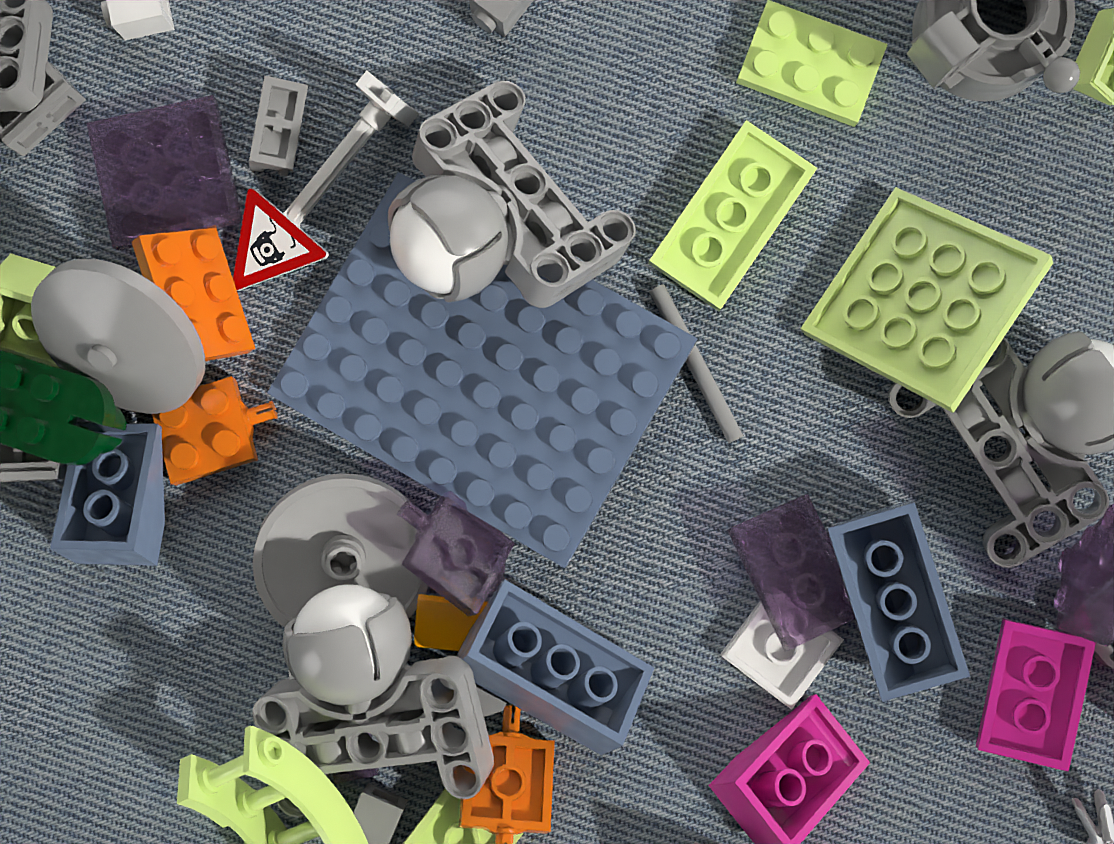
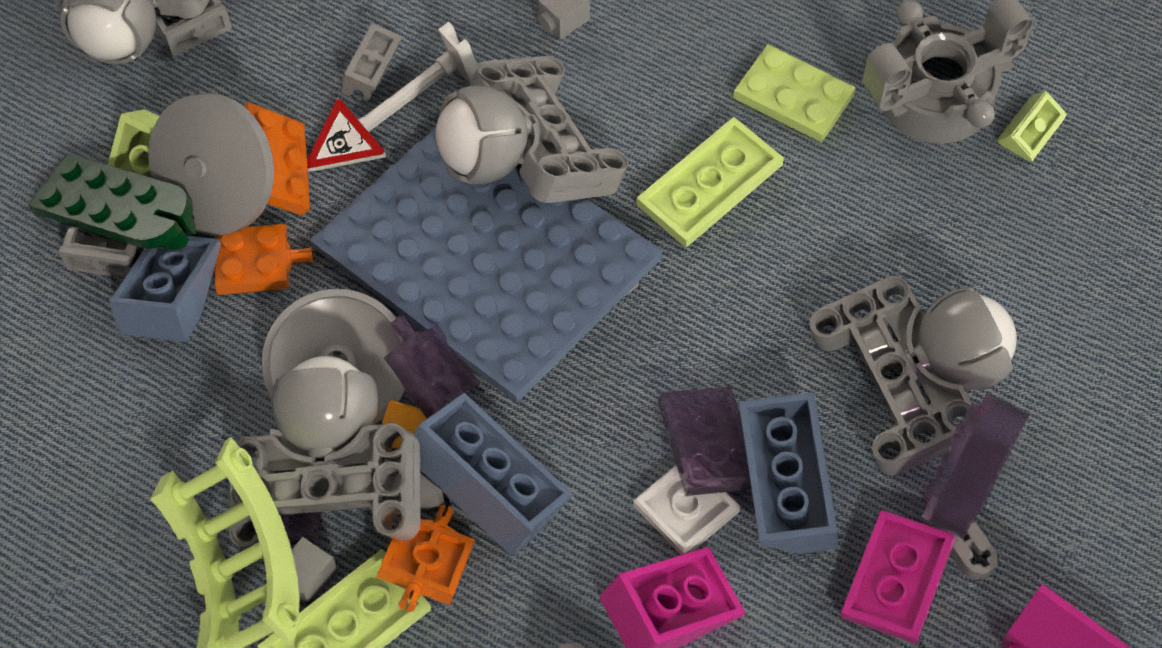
camera: 10 degrees right, 25 degrees down
(164, 171) = (281, 74): clear purple plate -> none
(699, 368) = (663, 291): light grey bar -> none
(926, 297) = (850, 251): yellowish green plate -> none

